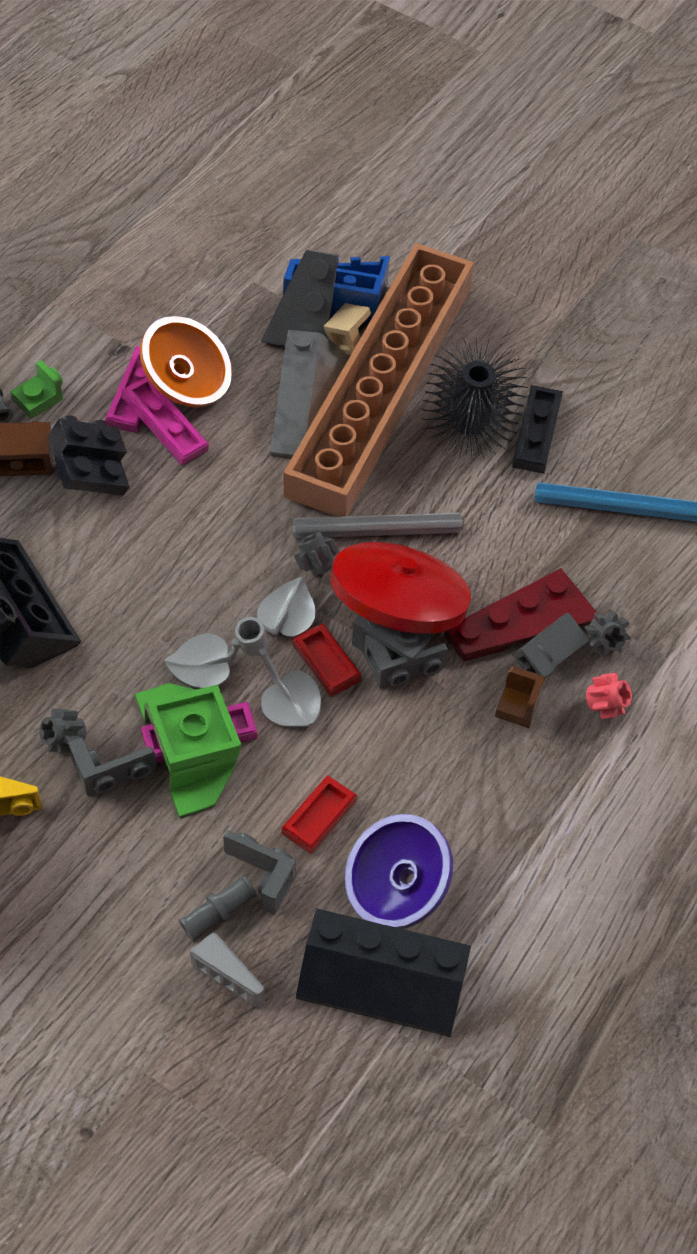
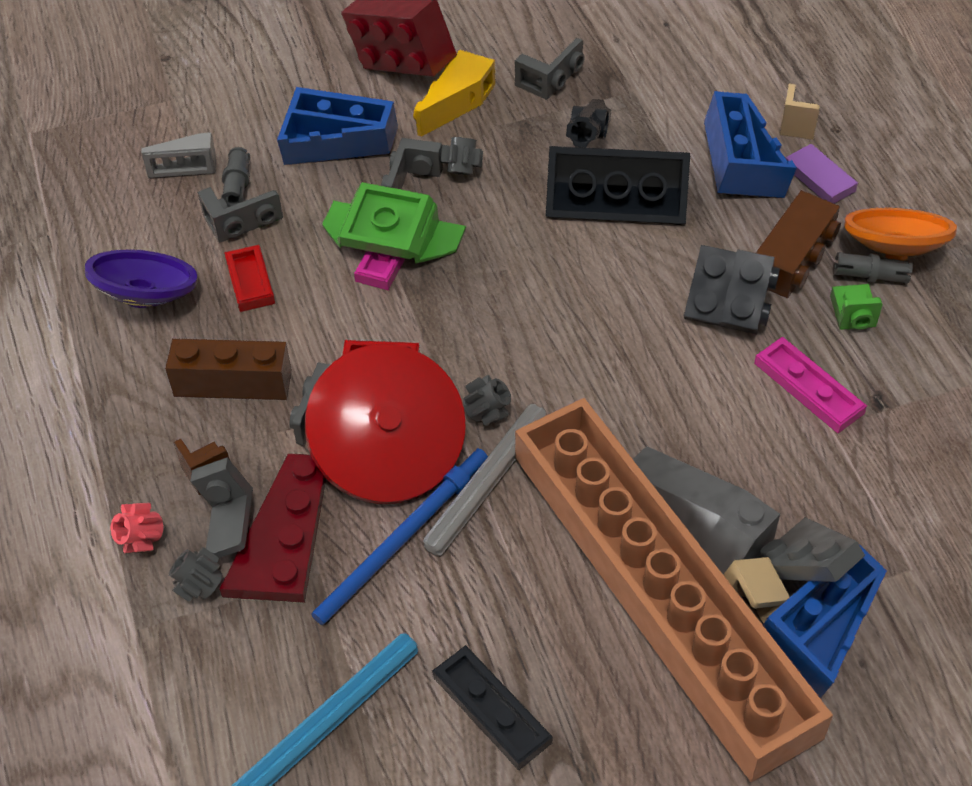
camera: 130 degrees right, 5 degrees down
(102, 855) = (335, 127): none -> blue wedge
(165, 421) = (745, 376): dark pink tile -> none
(185, 361) = (788, 394): orange dish -> none
(285, 611) = (456, 277): light grey plant -> none
(383, 972) = (122, 224): black slope -> none
(430, 741) = (229, 369): none -> reddish brown brick
(467, 545) = (452, 484): none -> blue bar
(474, 398) = (556, 630): black piece -> none

